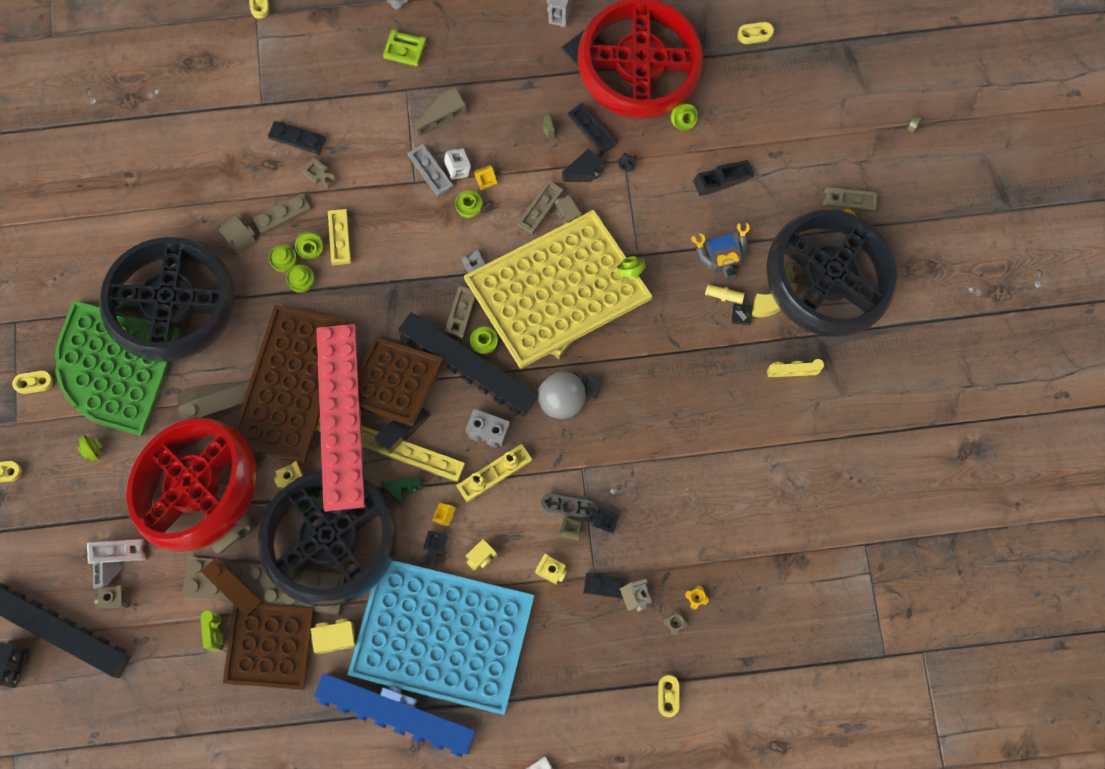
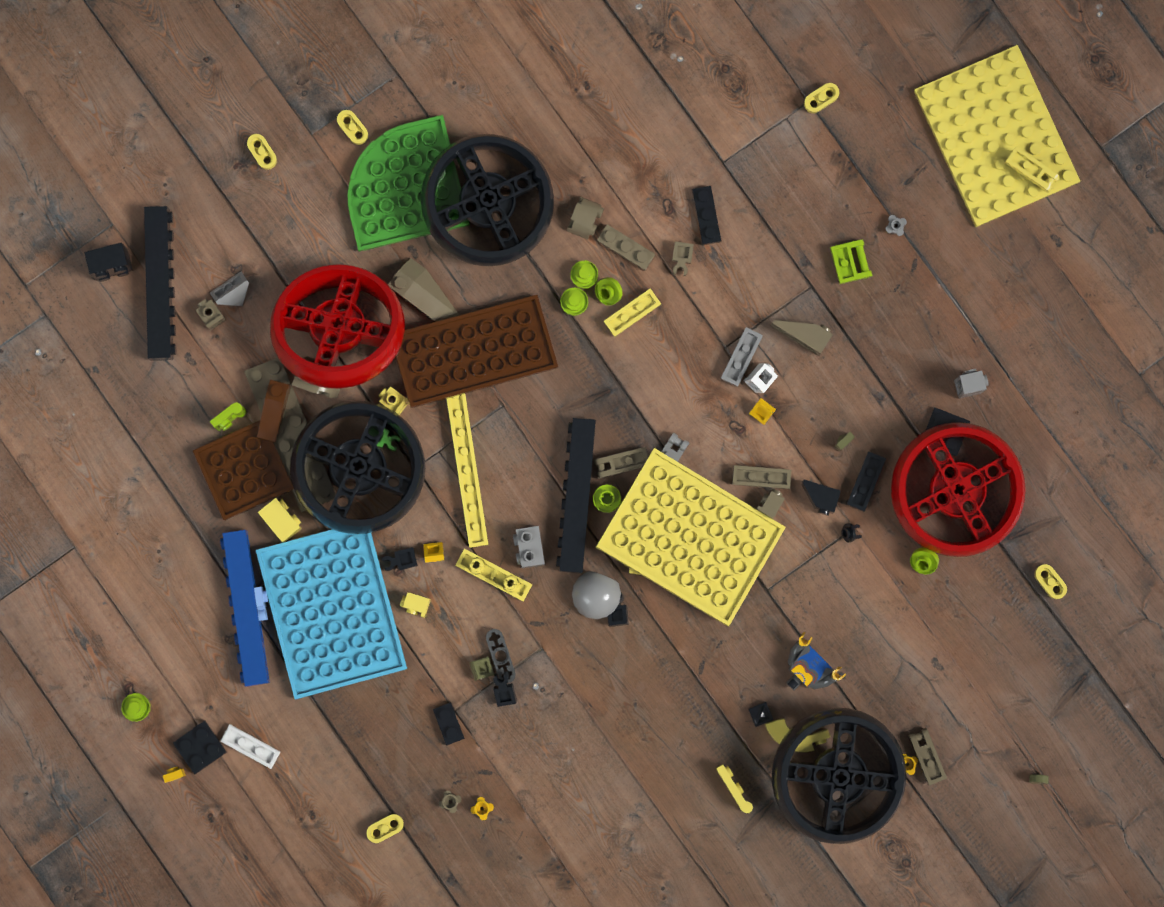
camera: 55 degrees right, 10 degrees up
(89, 448) = (323, 215): lime plate -> none
(115, 551) = (248, 294): white plate -> none
(340, 418) = (466, 415): coral plate -> none
(396, 380) = (524, 441): reddish brown plate -> none
(396, 487) = (432, 498): dark green slope -> none
(397, 432) = (489, 472): black slope -> none
(468, 204) = (727, 411): lime plate -> none
(545, 563) = (440, 664): light yellow brick -> none
(631, 267) = (743, 593): lime plate -> none
(636, 595) = (453, 756): dark tan brick -> none
(723, 177) = (884, 628): black slope -> none
(724, 293) = (771, 689): light yellow pin -> none

